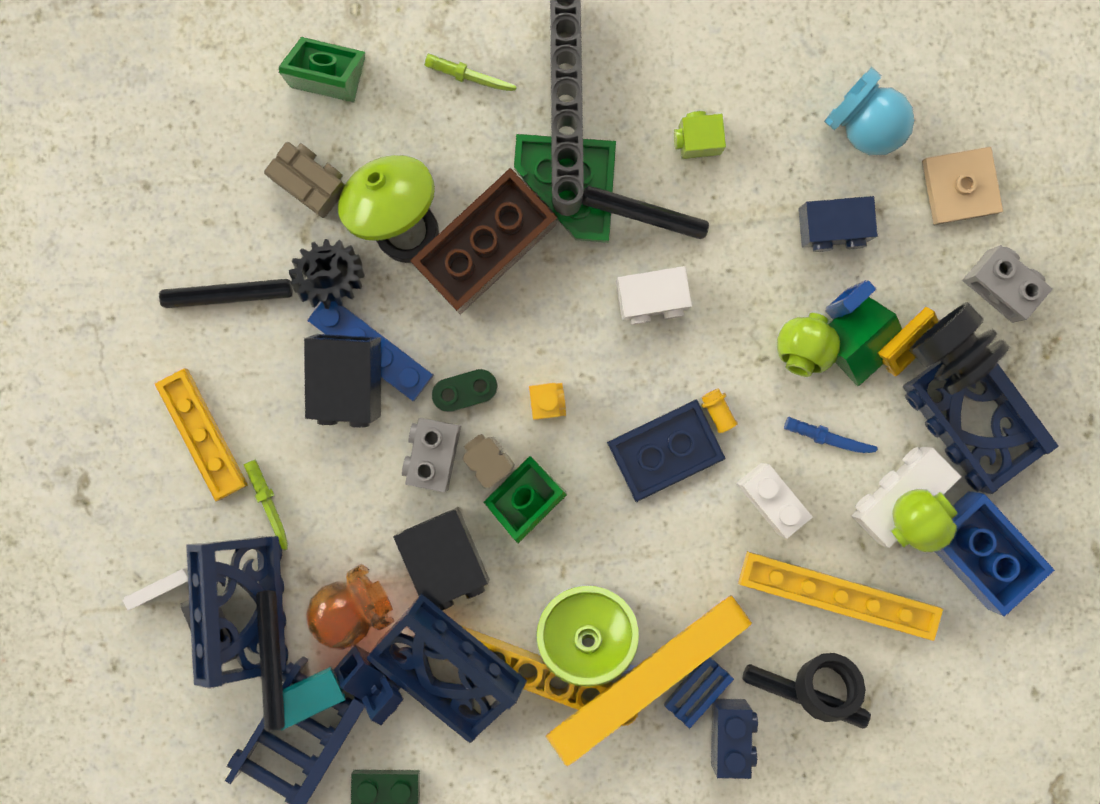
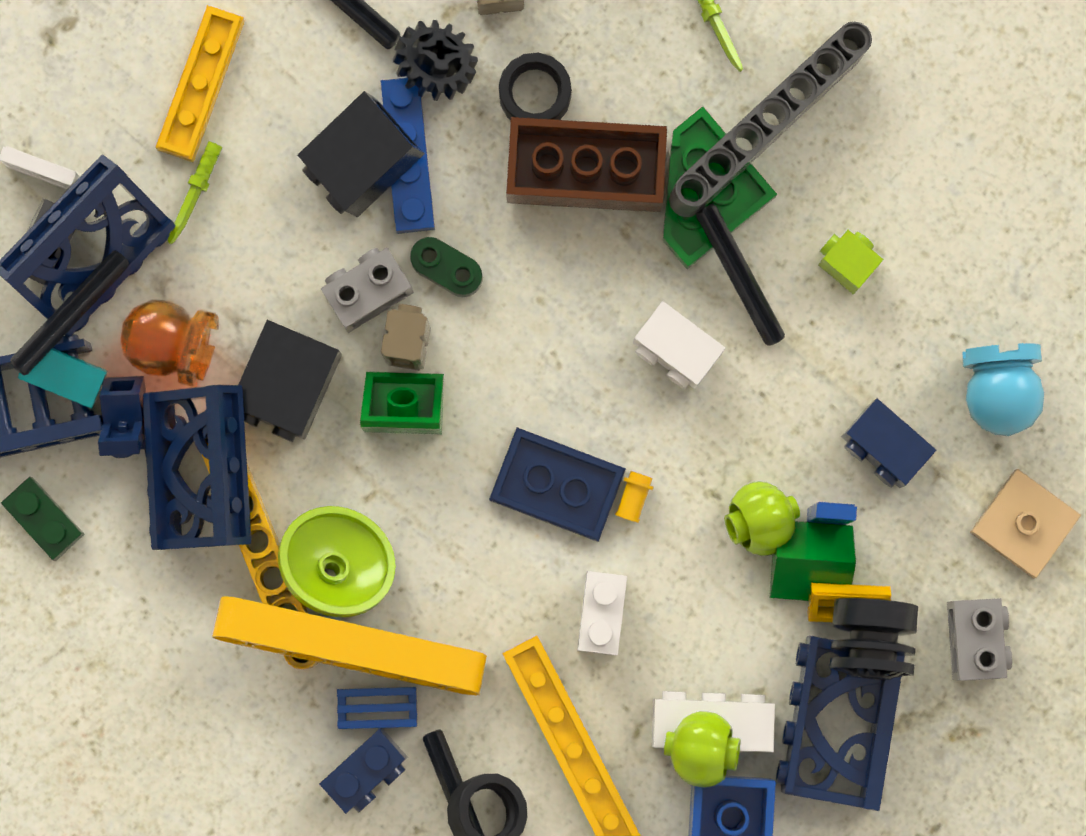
camera: 45 degrees right, 5 degrees down
(386, 197) = (545, 48): lime dish -> none
(547, 400) = (503, 342): yellow brick -> none
(821, 436) = (696, 605): blue piece -> none

